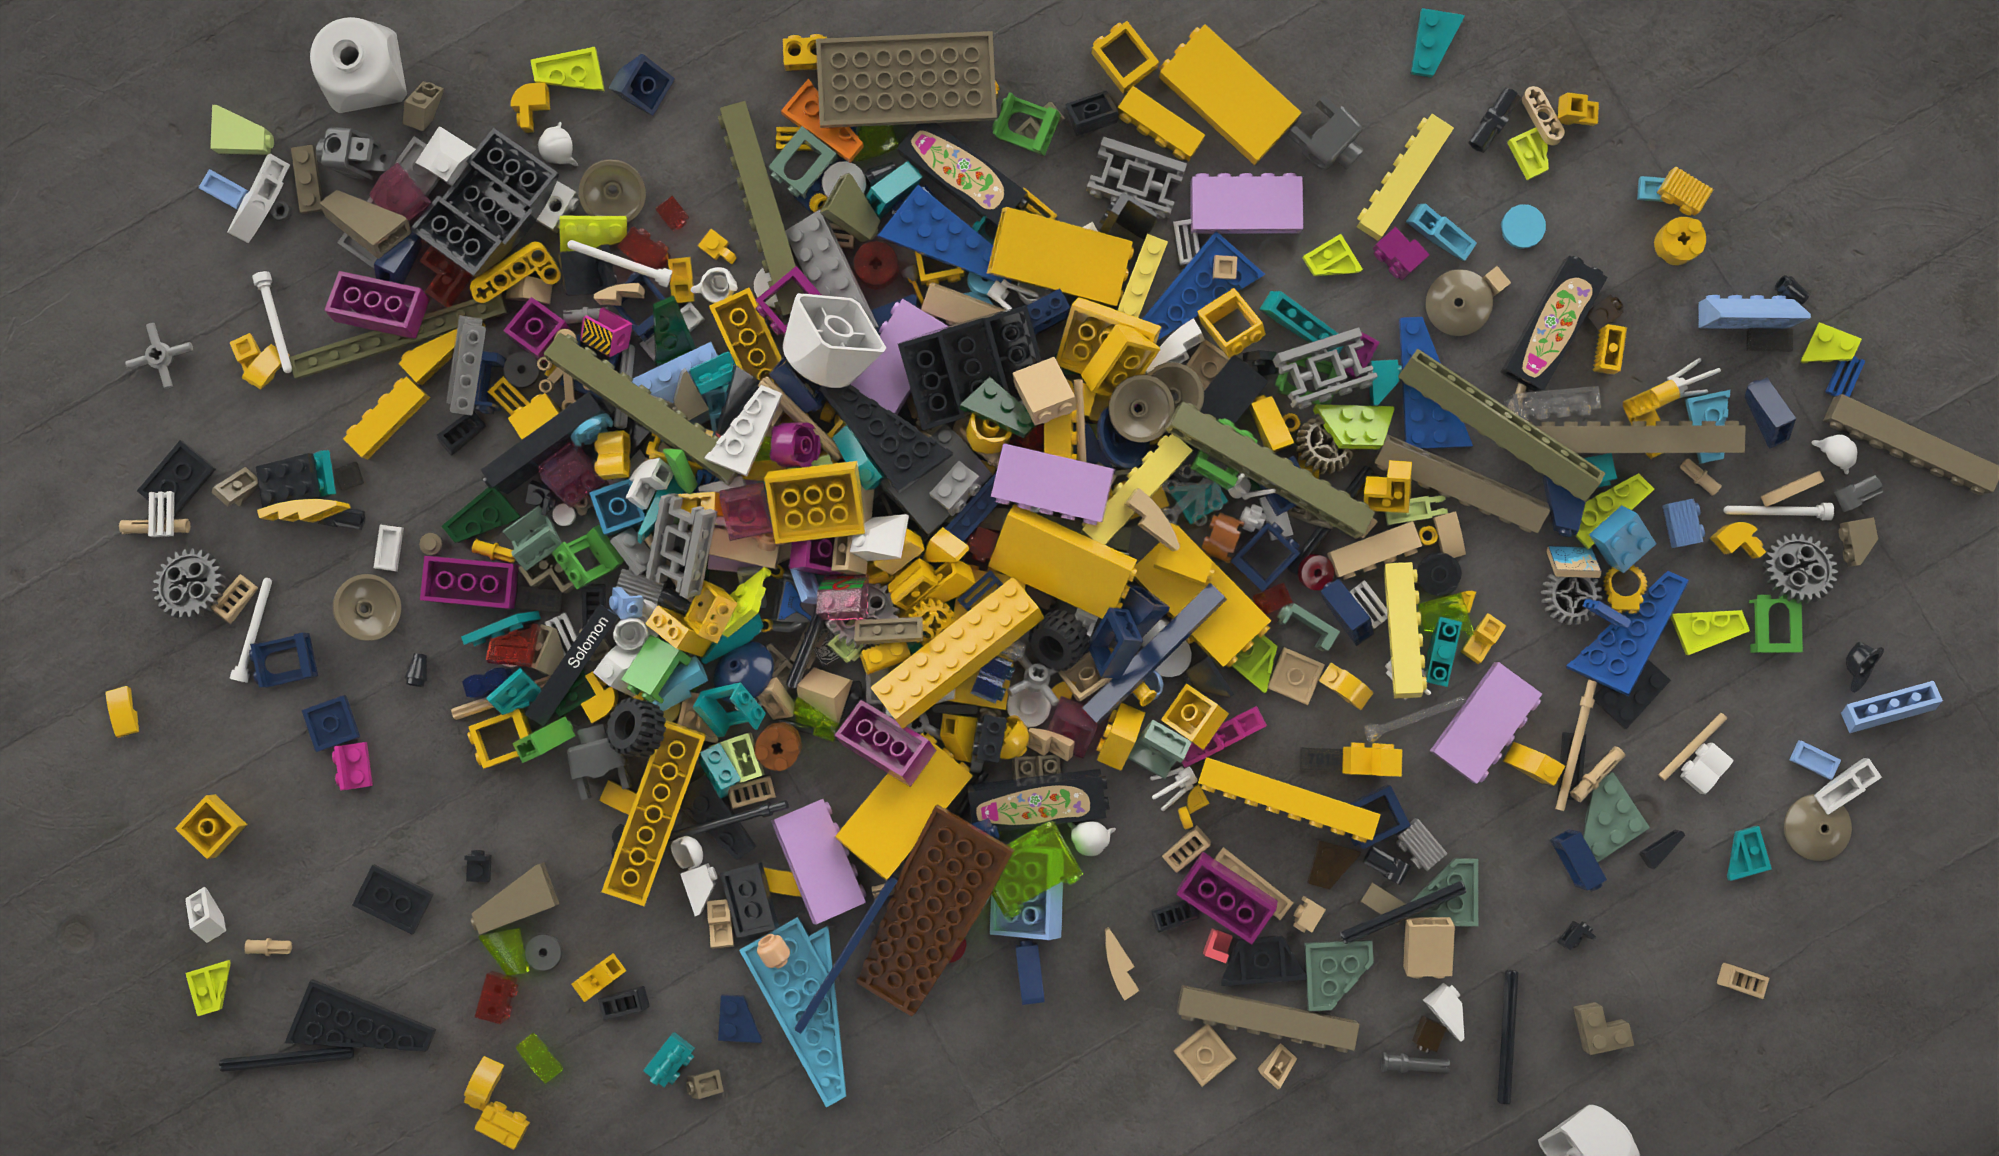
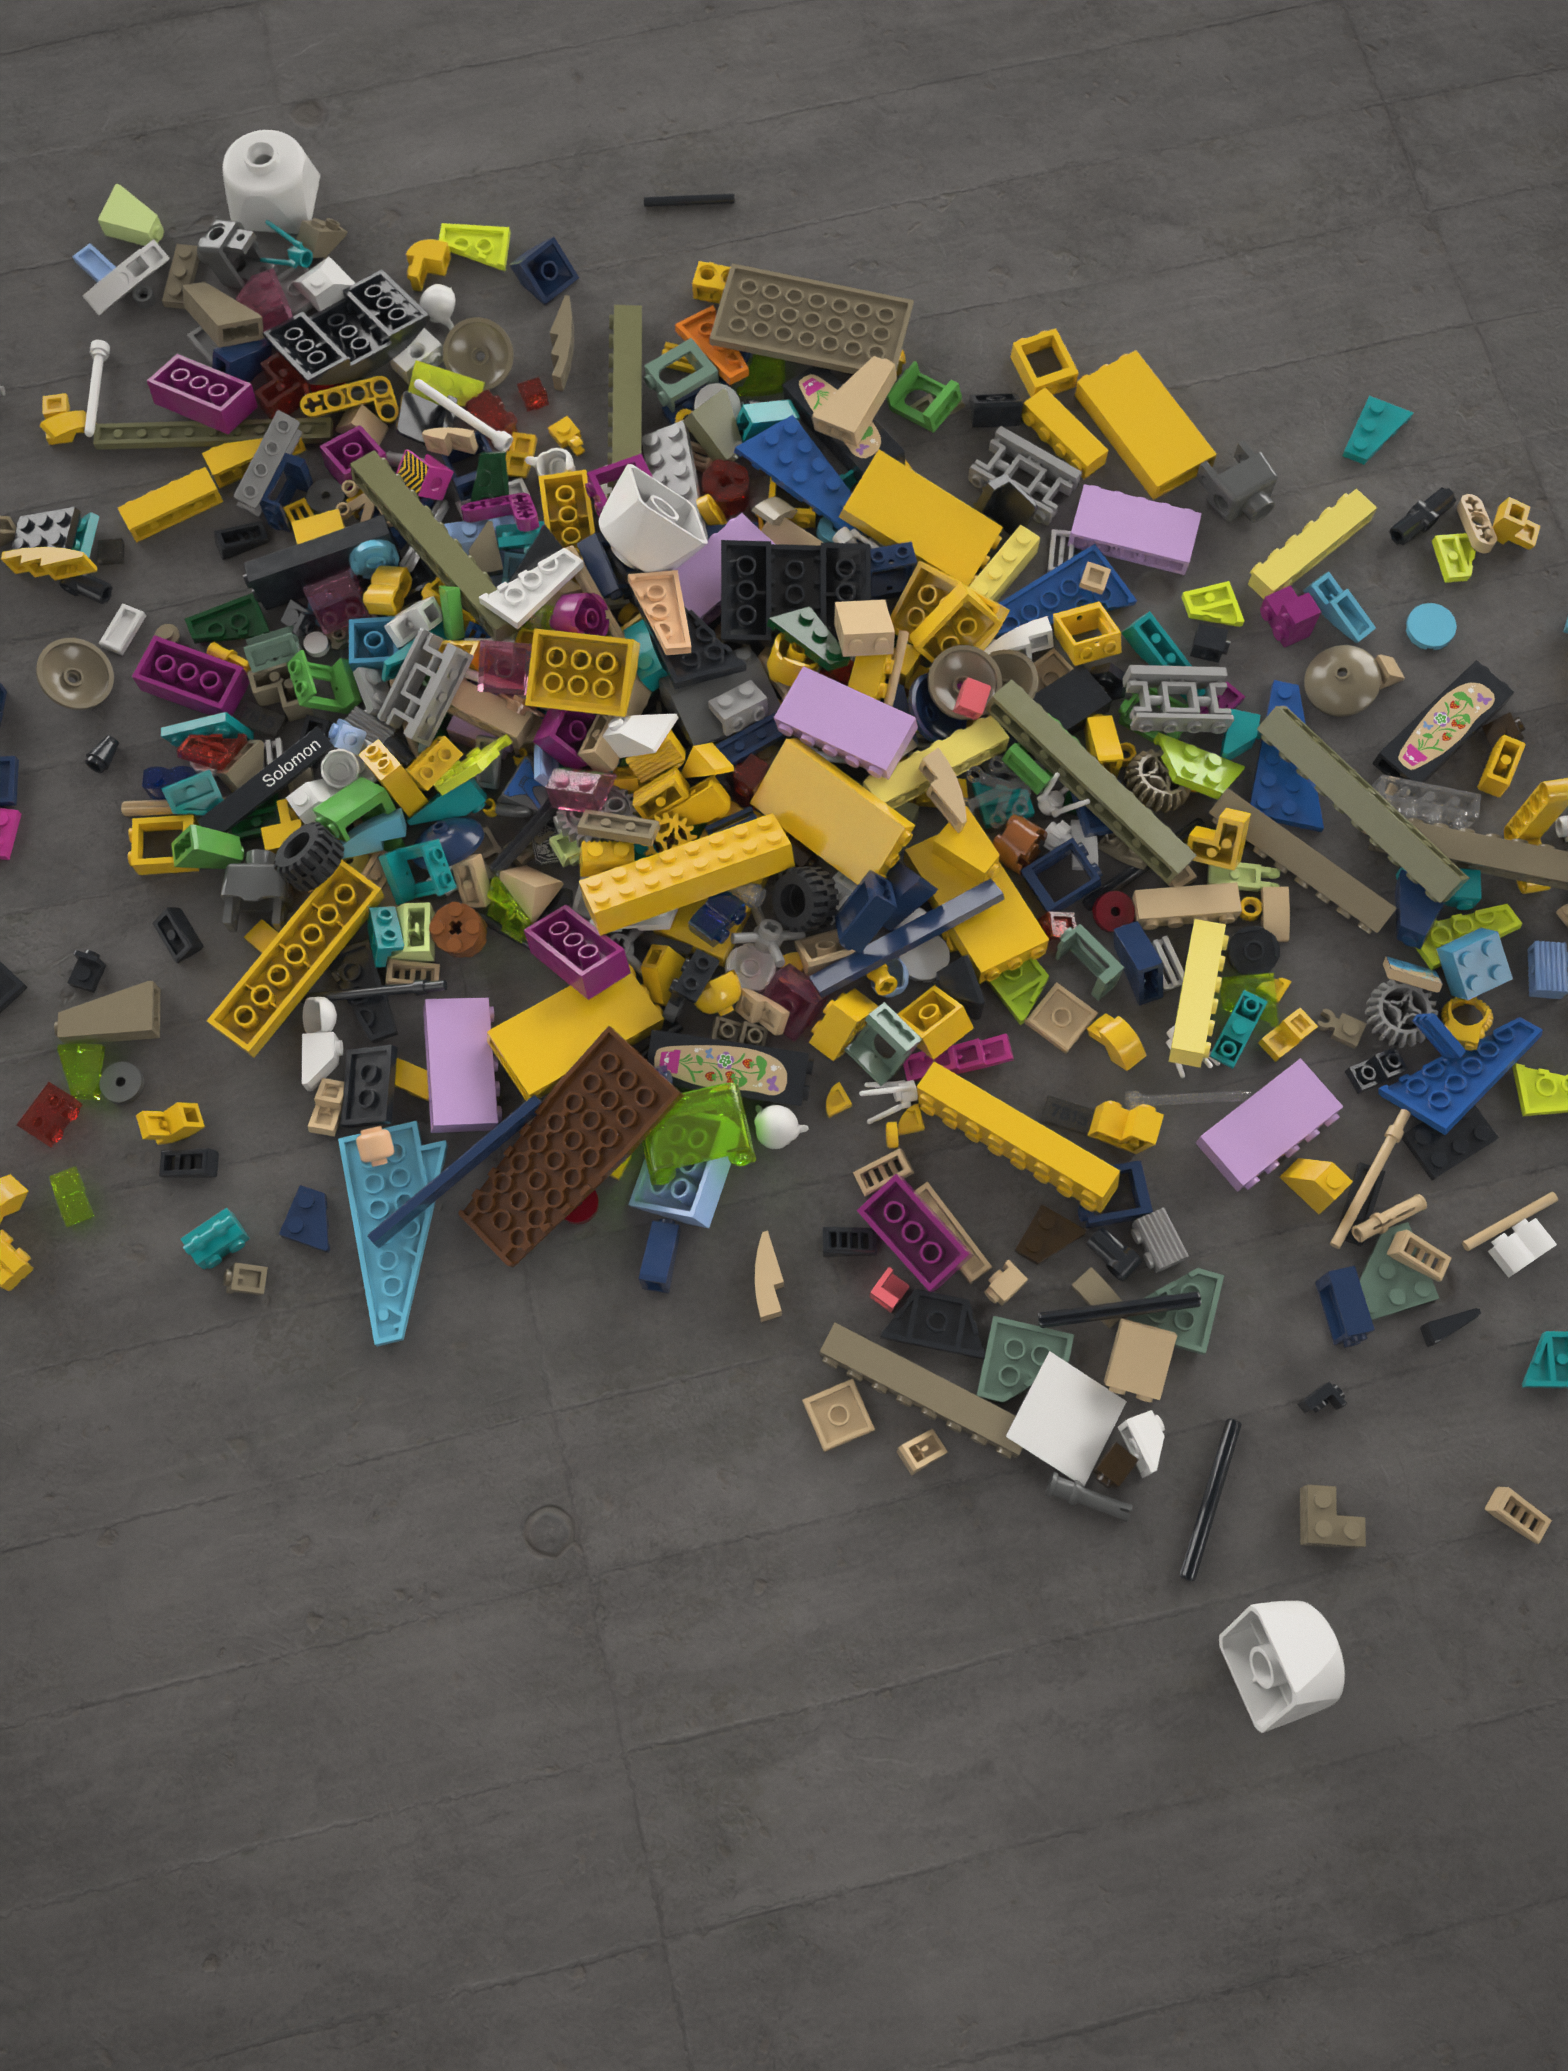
camera: 20 degrees right, 15 degrees down
(411, 133) = (297, 253): none -> teal plant
(541, 811) = (177, 934): none -> black slope
(681, 149) = (563, 344): none -> dark tan slope
(694, 344) = (518, 505): none -> magenta beam
(866, 419) = (664, 607): none -> light nougat wing
(872, 296) = (710, 511): none -> yellow beam
(930, 286) = (774, 510): none -> dark tan slope
(971, 160) = (856, 402): none -> tan slope
(1131, 799) = (837, 1100): none -> yellow tile
(1152, 426) = (972, 698): none -> coral panel
(1338, 298) = (1210, 643): none -> black brick
(1382, 1009) = (1066, 1418): none -> white sticker
(1527, 620) = (1345, 1029): none -> dark tan plate
(1561, 649) = (1376, 1070): none -> black slope
(1613, 798) = (1402, 1249): none -> tan slope

